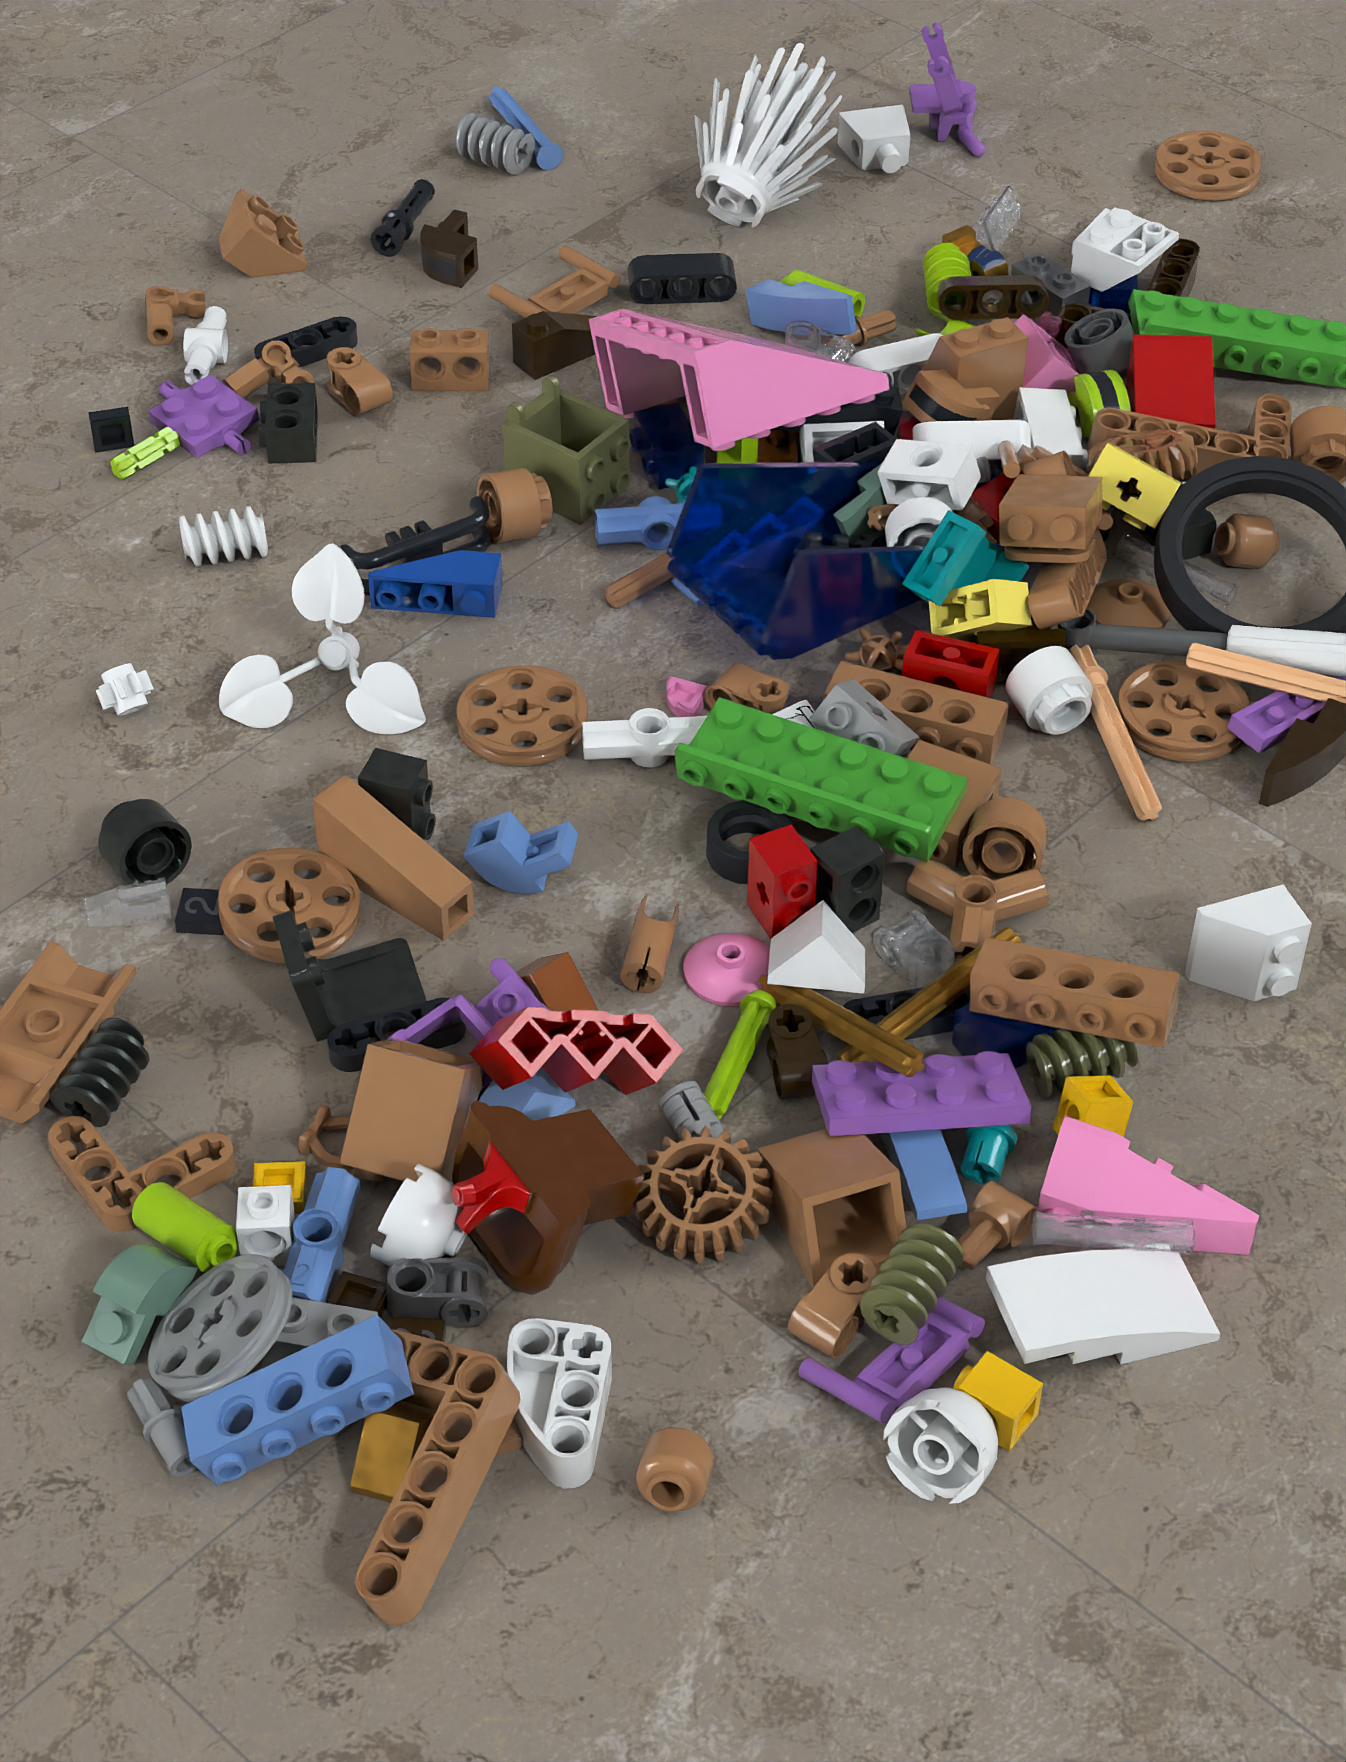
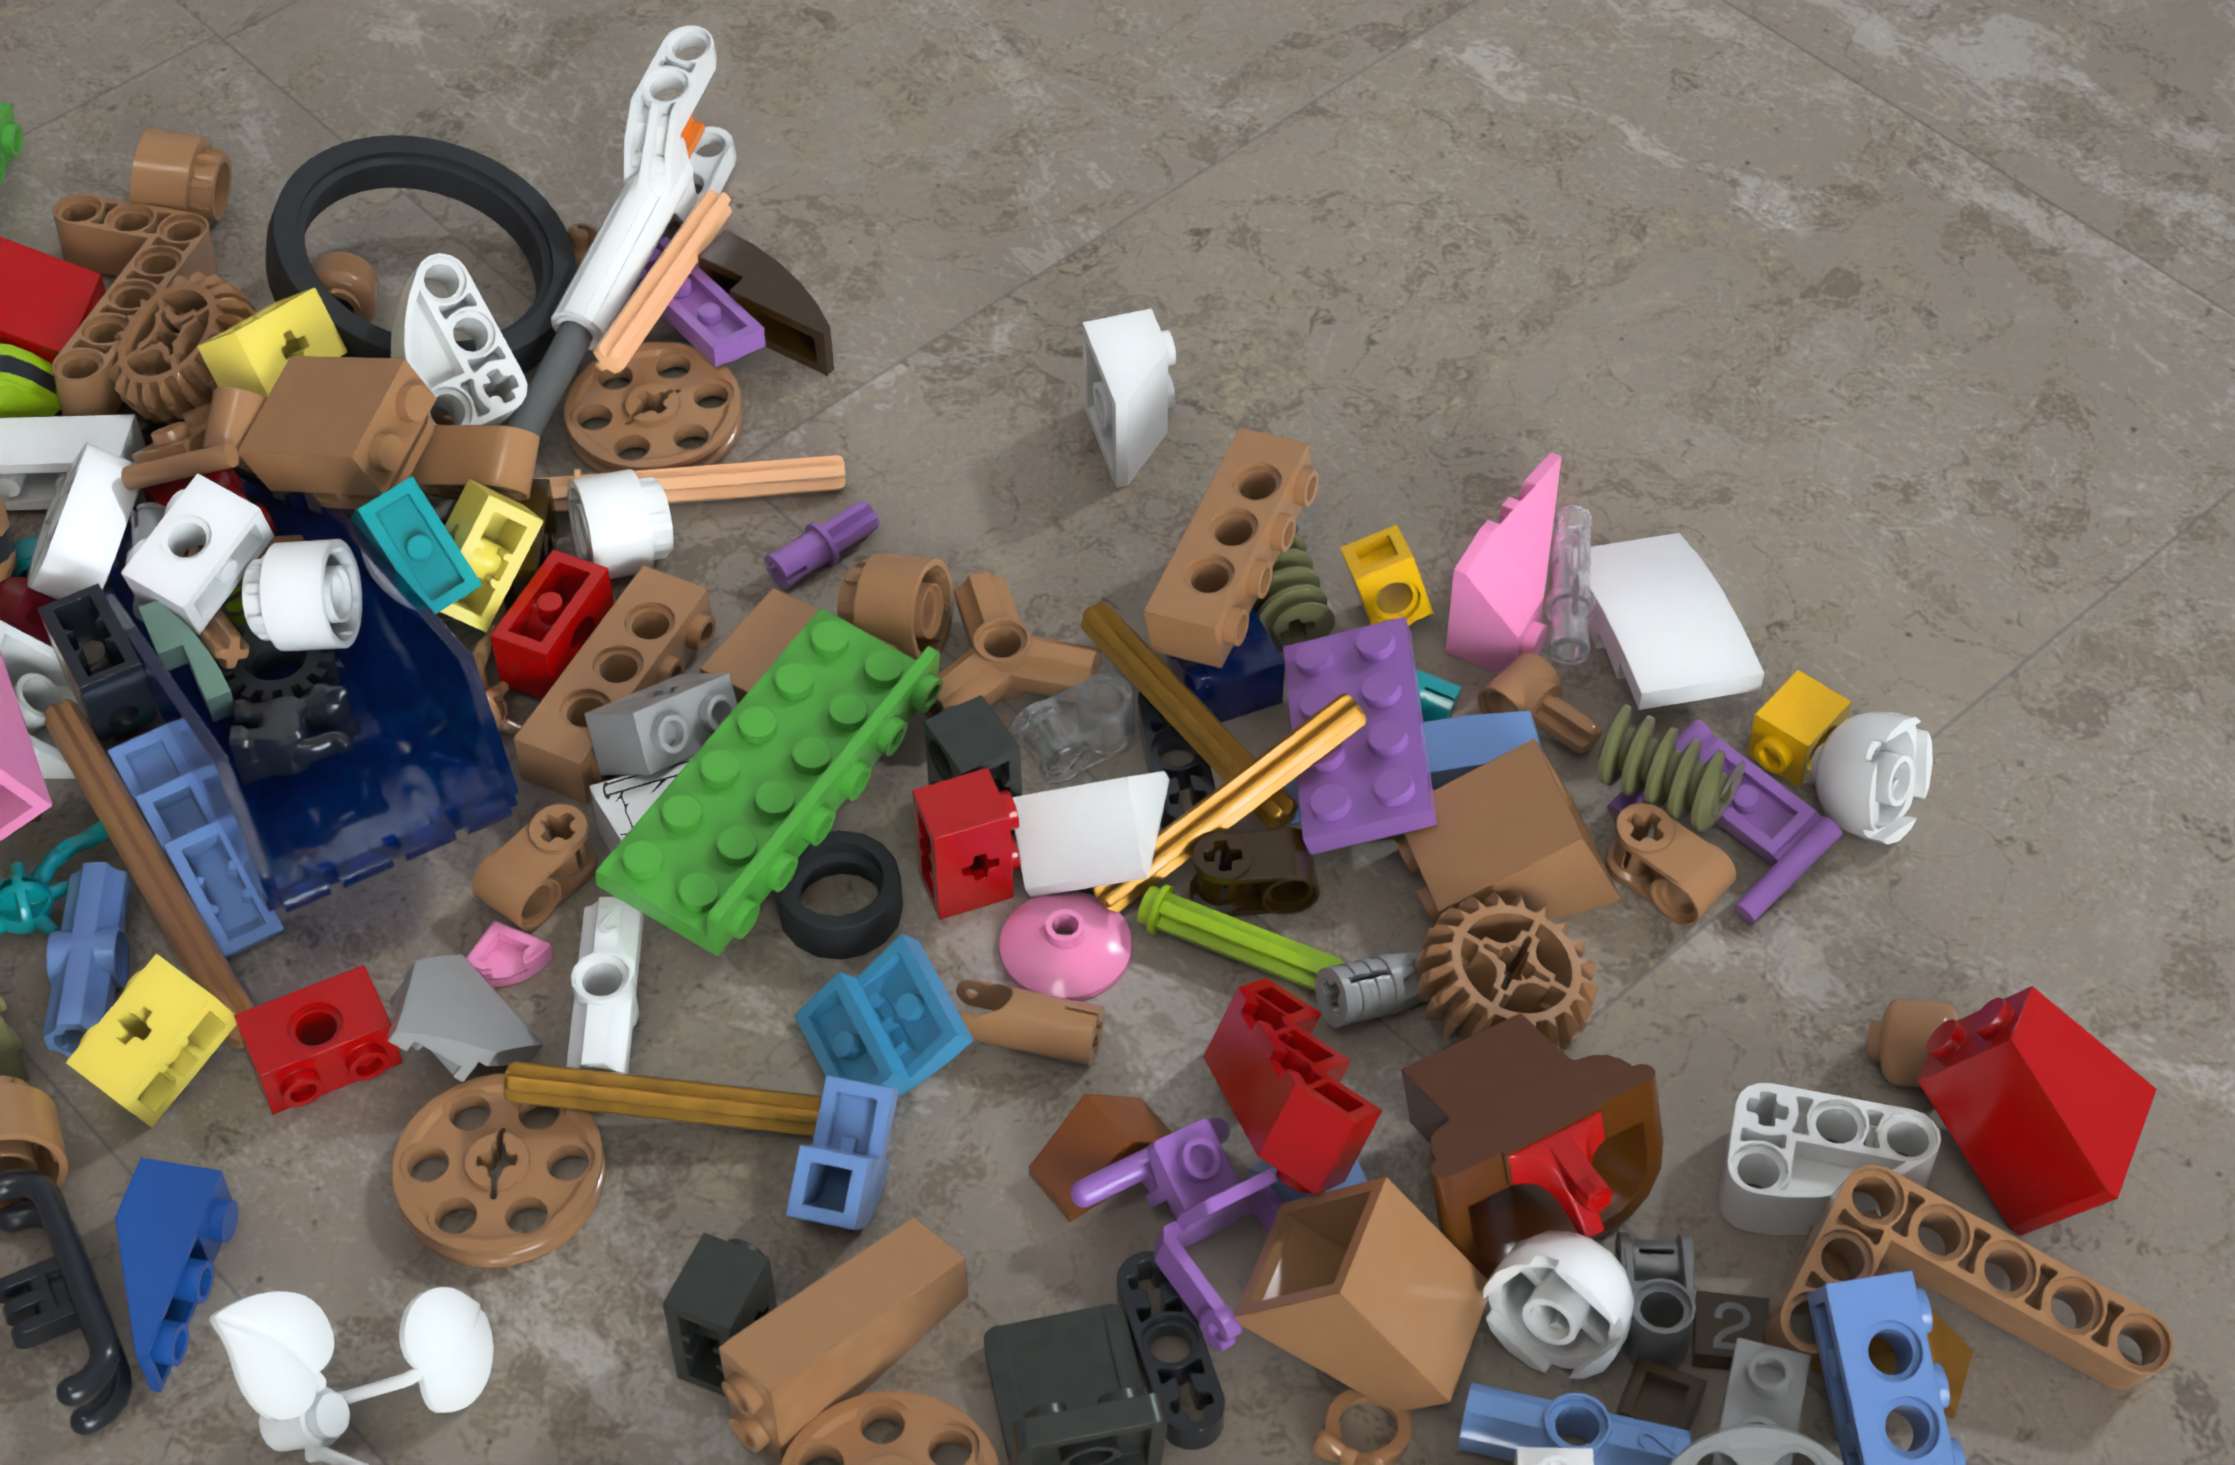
camera: 85 degrees left, 5 degrees up
(570, 766) = (661, 1098): none -> pearl gold axle
(585, 1505) = (2036, 1107): none -> red slope
(590, 550) = (153, 1040): none -> light yellow brick
(604, 621) = (287, 1034): none -> red brick
(621, 670) = (458, 1017): none -> light grey slope
(637, 870) = (886, 1023): none -> dark azure slope
(1073, 807) = (820, 544): none -> medium lavender axle
(1147, 561) = (426, 340): none -> white beam

